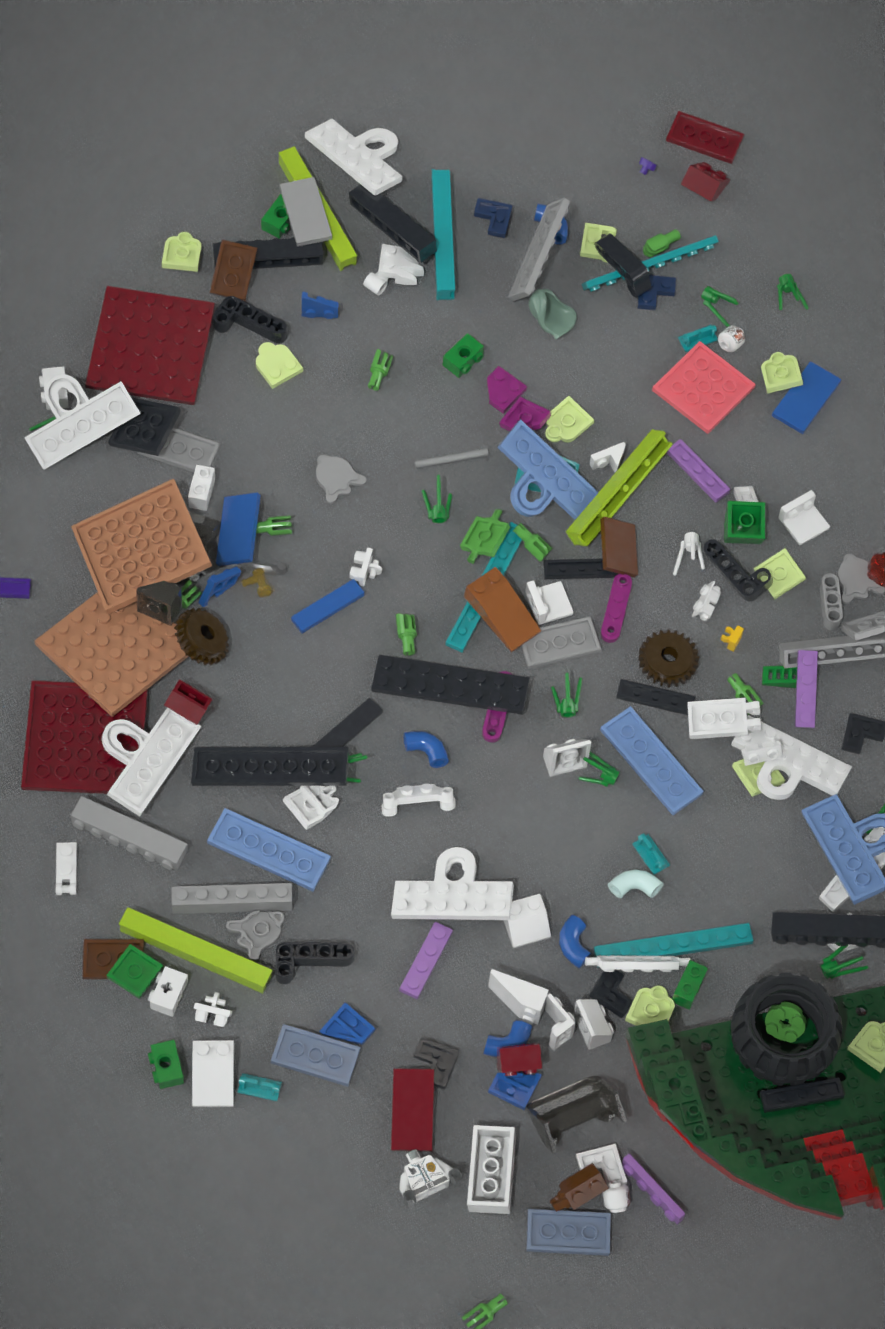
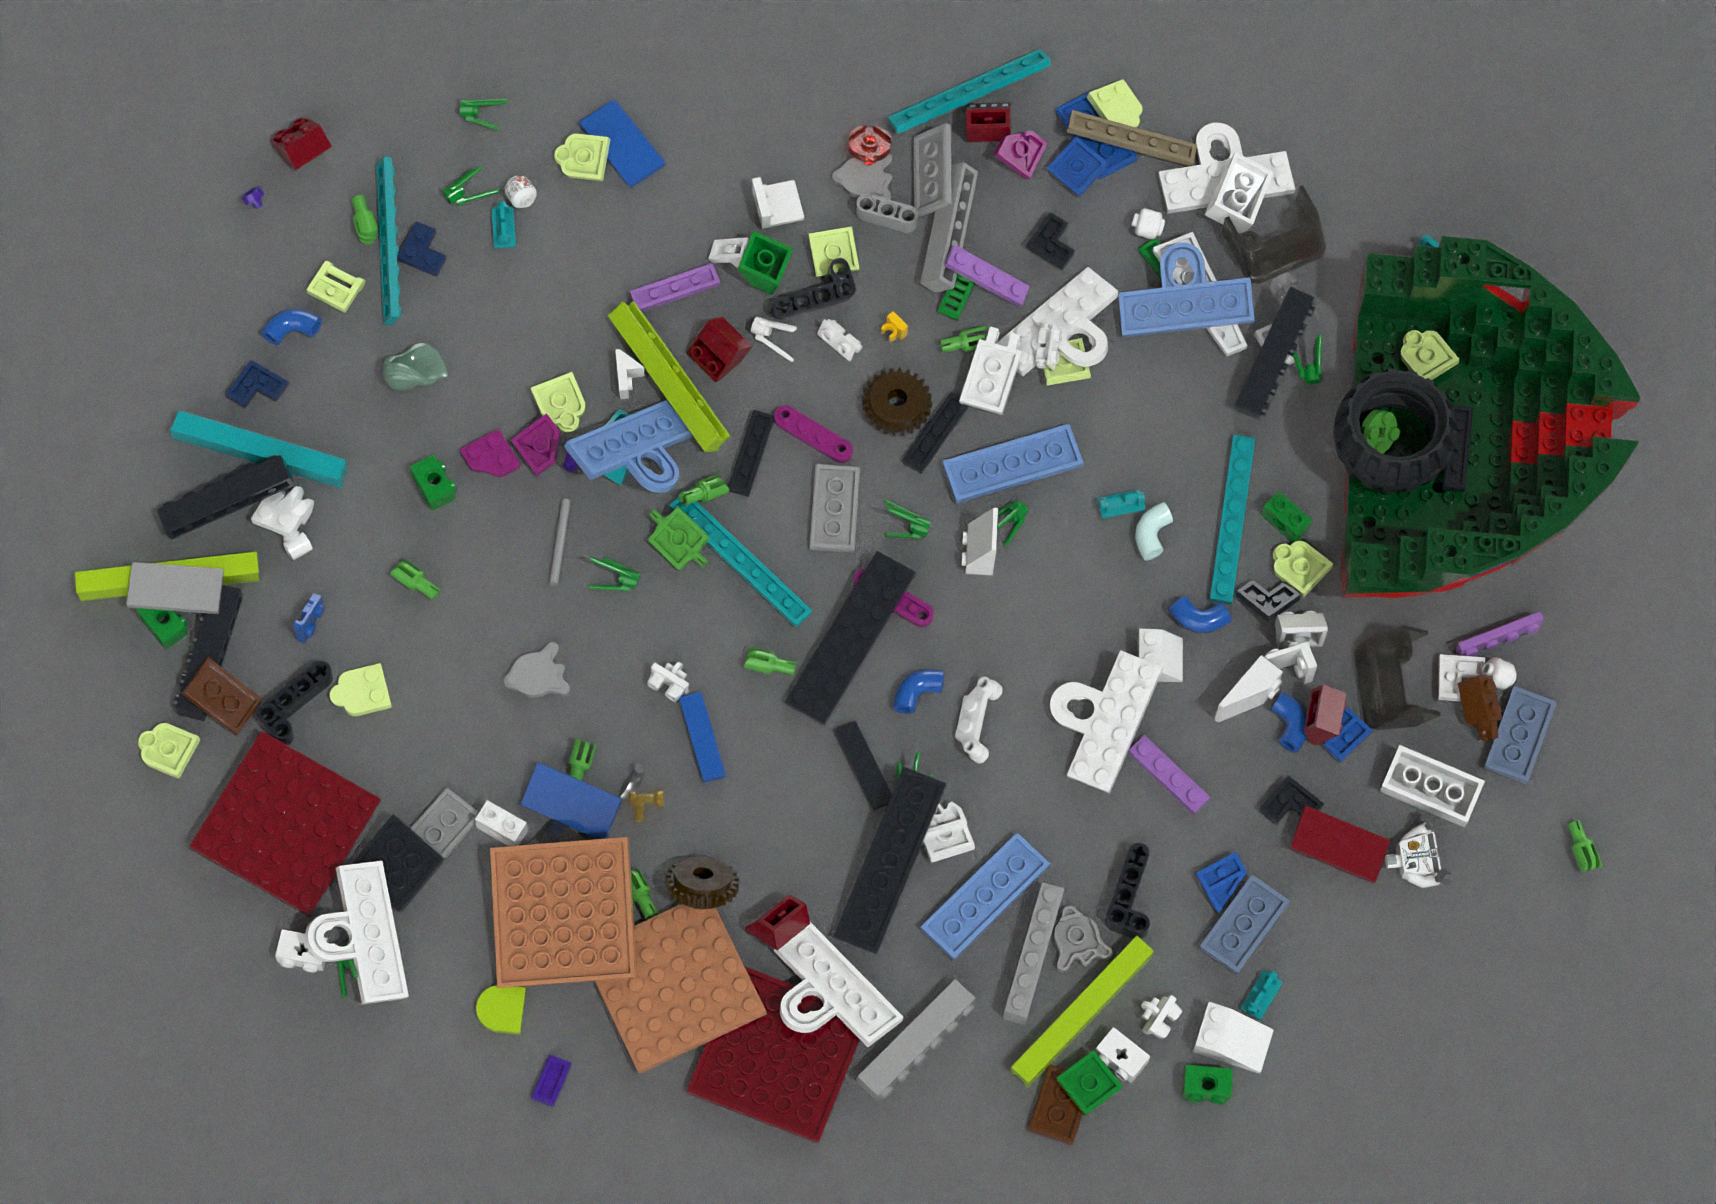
camera: 70 degrees left, 5 degrees up
(56, 536) = (502, 1009): none -> lime tile
(66, 868) = (934, 1123): white plate -> none
(160, 601) = (650, 910): clear smoke slope -> none
(219, 584) = (637, 845): blue wing -> none
(354, 157) = (114, 510): white plate -> none
(501, 609) = (780, 551): dark orange slope -> none
(538, 249) = (332, 349): light grey plate -> none
(548, 602) = (783, 501): white bracket -> none
(619, 547) = (743, 403): reddish brown tile -> none
(625, 264) = (391, 262): black beam -> none
(642, 963) = (1247, 559): white plate -> none
(660, 516) = (718, 348): none -> dark red slope
(703, 387) = (570, 244): coral plate -> none
(705, 137) = (237, 122): dark red tile -> none

